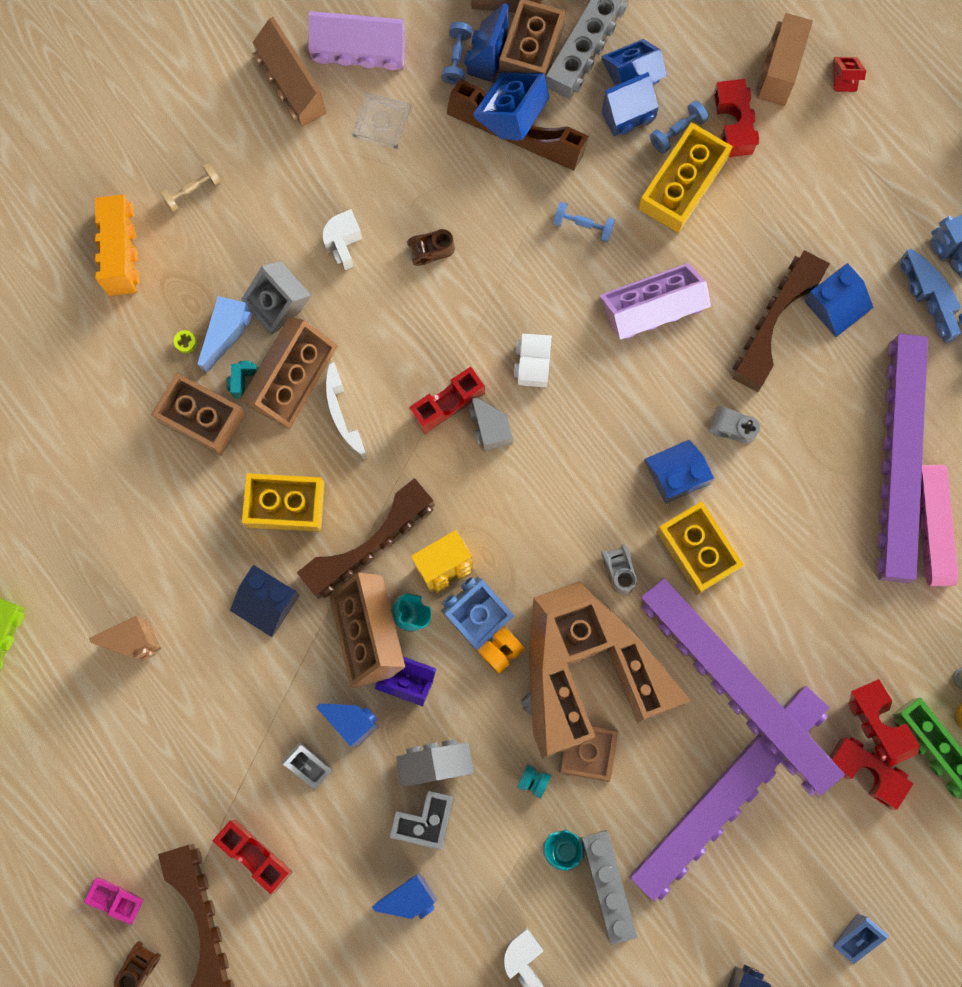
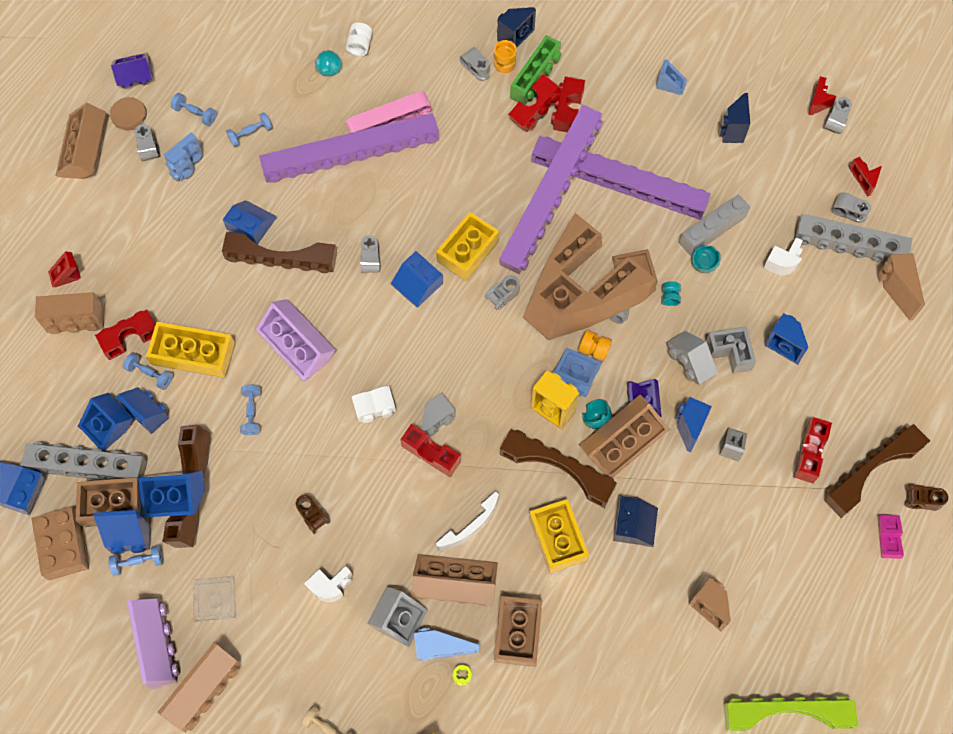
camera: 115 degrees left, 10 degrees down
(236, 382) = (479, 616): teal bracket -> none
(930, 285) = (218, 167): medium blue slope -> none

